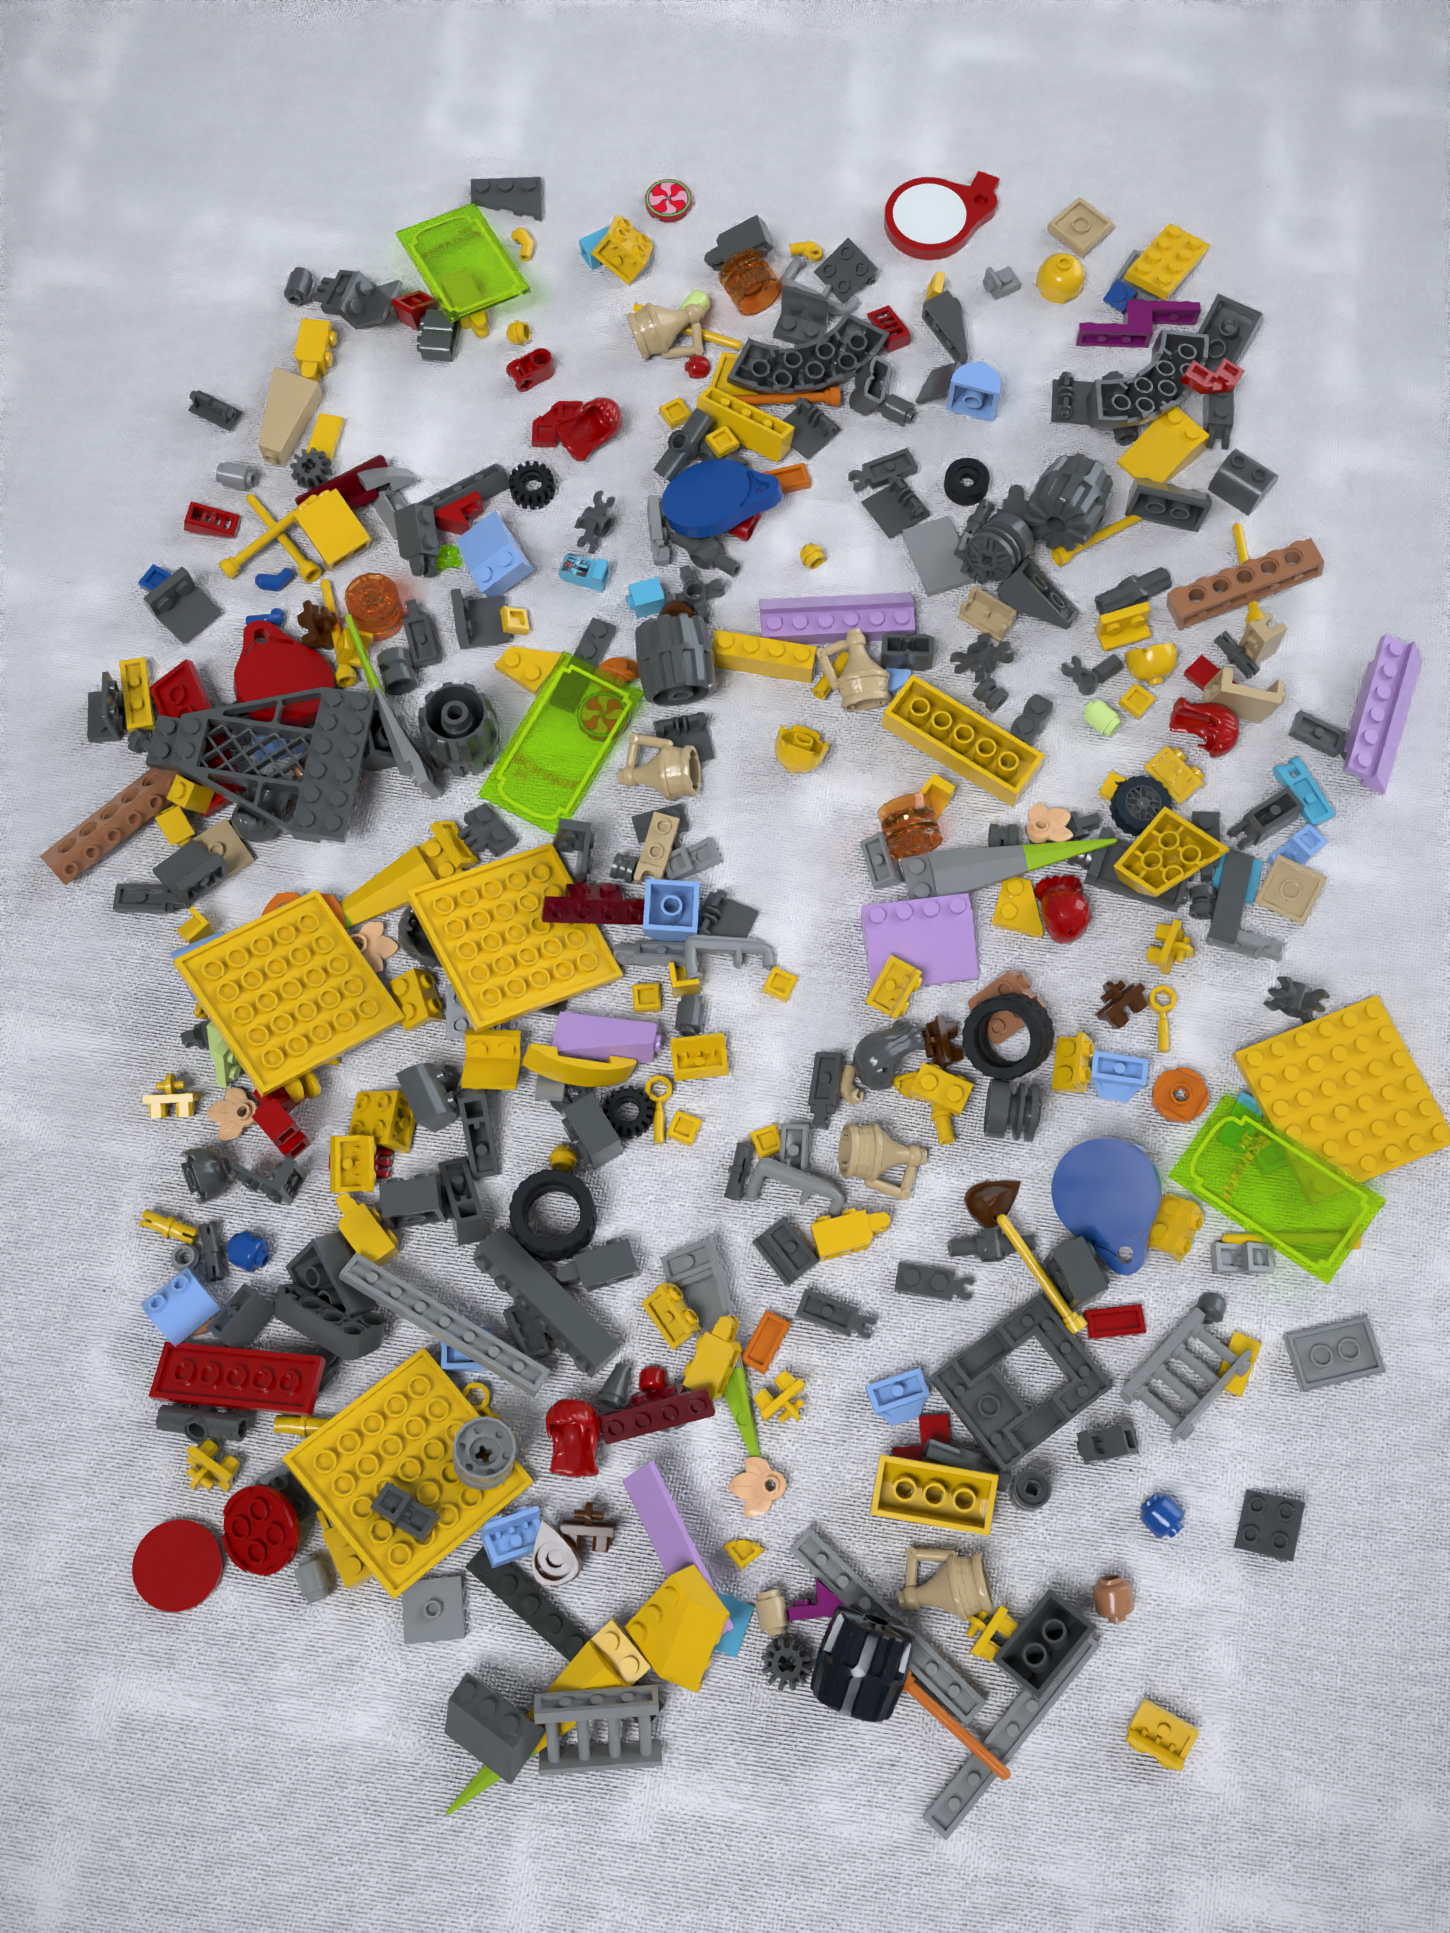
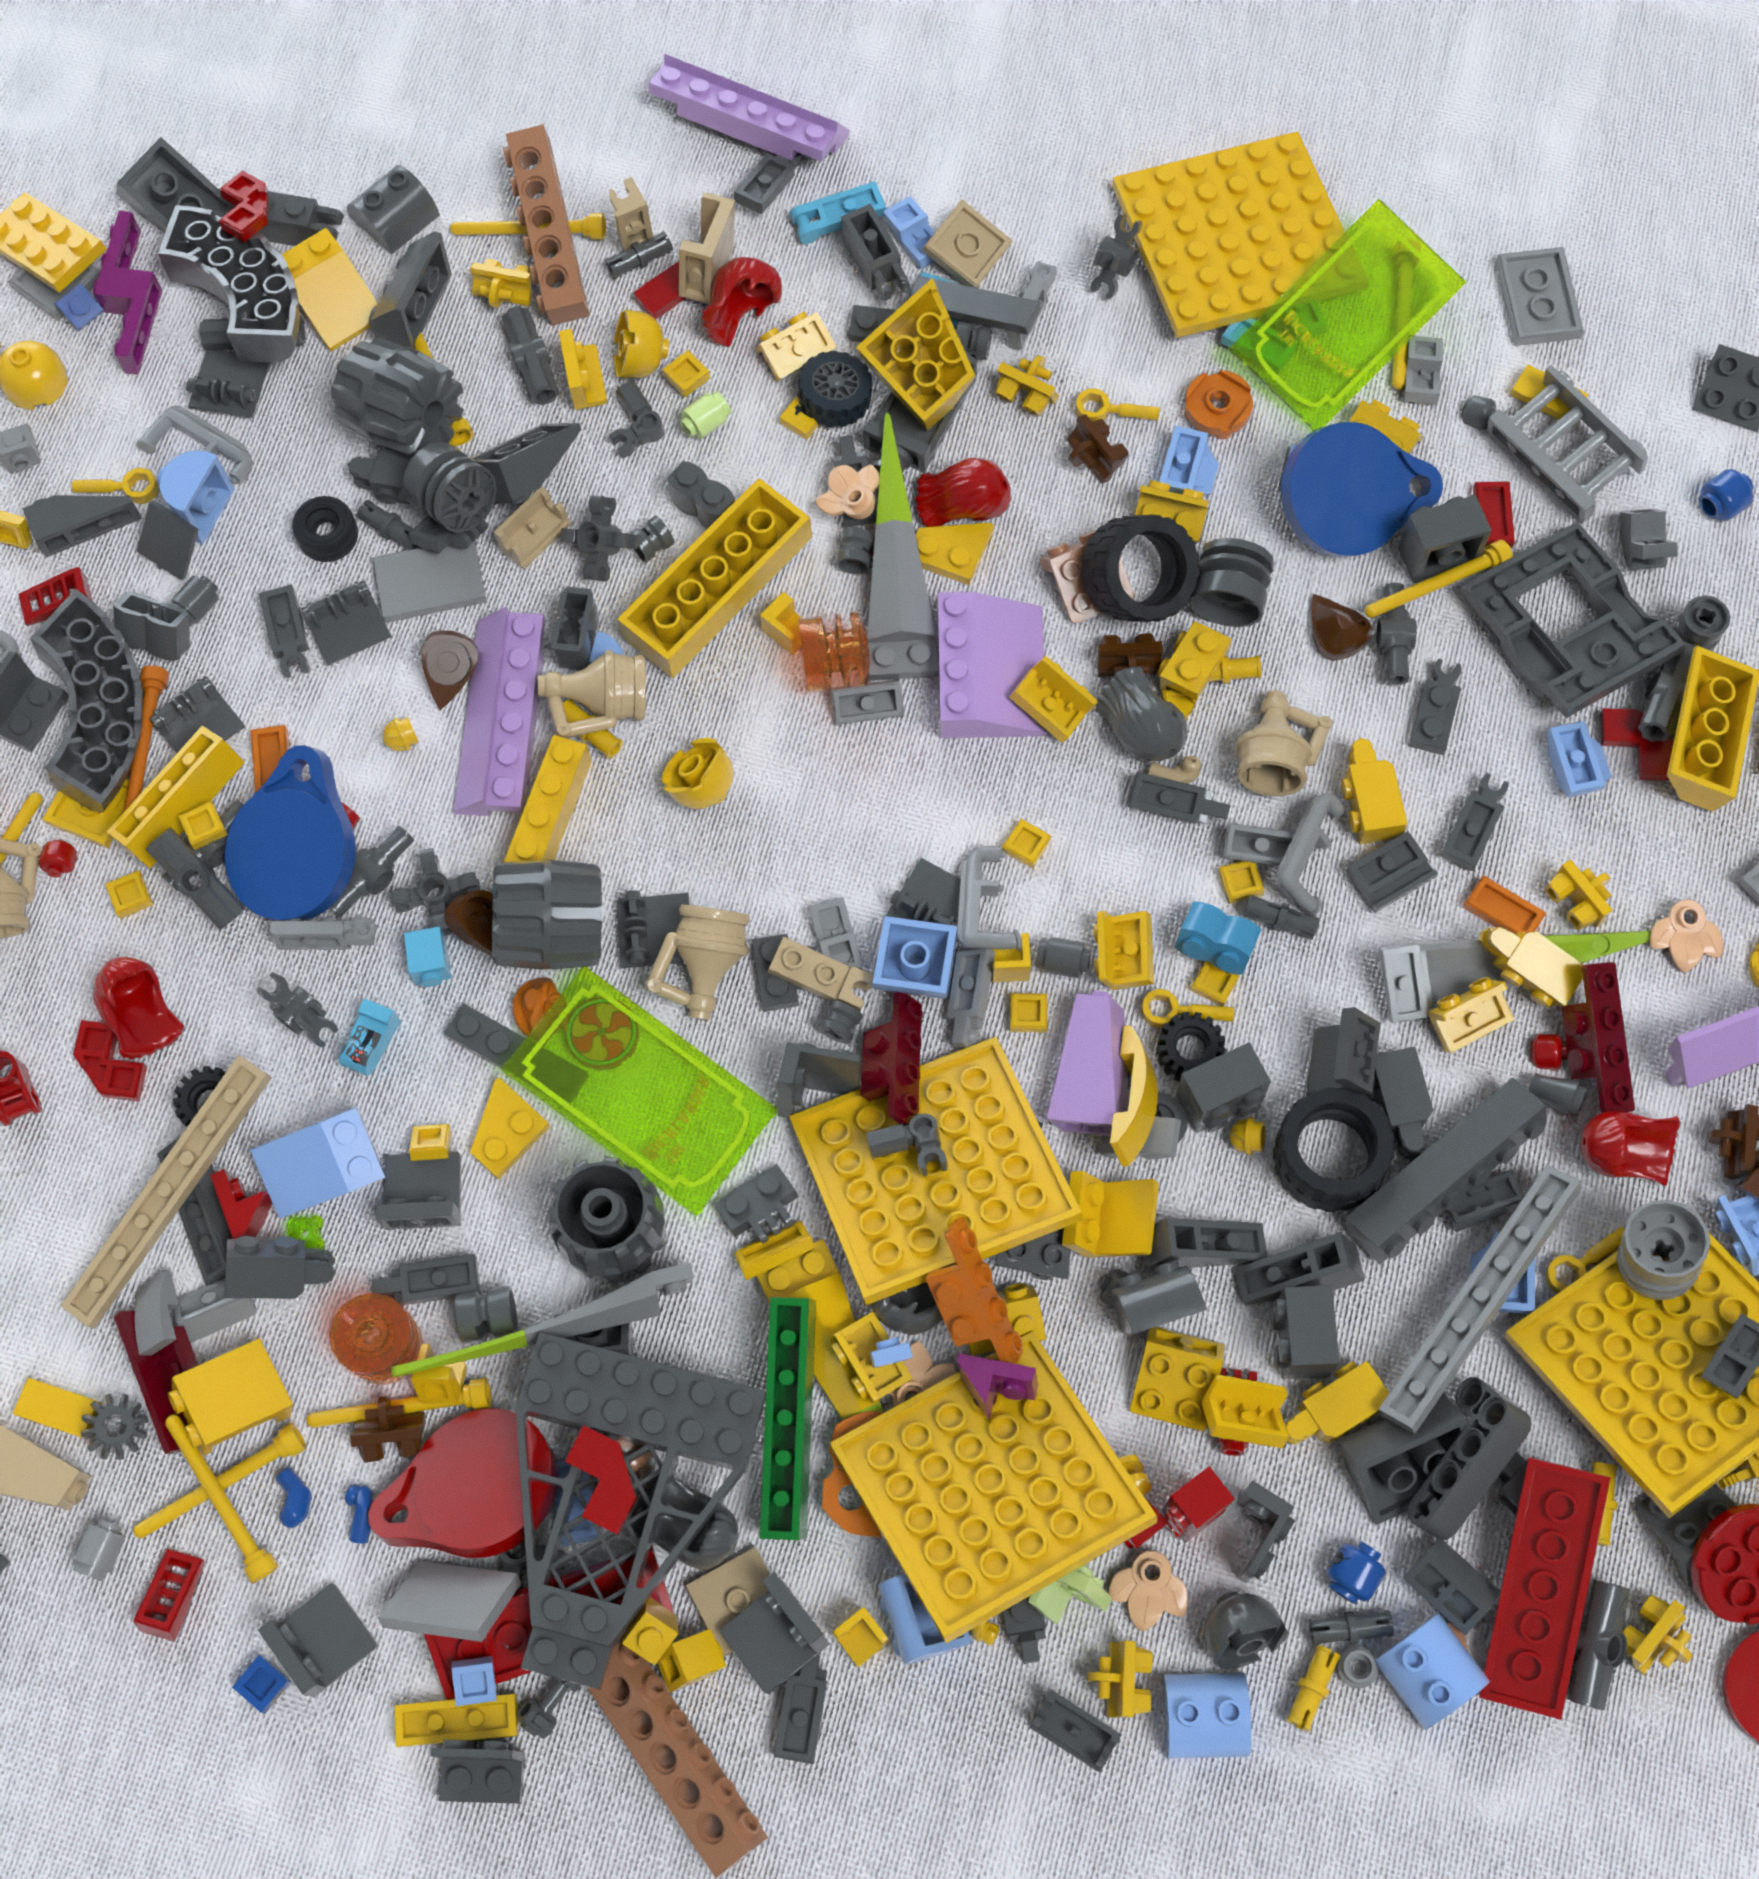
camera: 80 degrees left, 0 degrees up
(139, 1073) = (1075, 1731): none -> dark grey hinge
(151, 1155) = (1207, 1715): none -> light blue brick
(156, 696) = (474, 1681): none -> light blue plate
(204, 672) = (449, 1600): none -> light grey tile
(288, 742) = (615, 1491): none -> red tile
(332, 861) = (788, 1419): none -> green brick
(358, 983) = (987, 1377): none -> magenta slope
(376, 909) = (854, 1346): none -> yellow bracket
(376, 918) = (890, 1352): none -> light blue plate
(412, 963) = (970, 1299): none -> orange bracket
(466, 468) = (166, 1192): none -> tan plate
(535, 921) = (920, 1132): none -> dark grey bar
(623, 1220) = (1345, 1053): none -> dark grey bracket
(713, 1122) = (1217, 938): none -> dark azure brick
(869, 574) = (447, 663): none -> piece
(981, 344) = (127, 483): none -> yellow piece
(1032, 396) = (204, 433): none -> light grey piece
(1188, 562) = (501, 283): none -> yellow hips

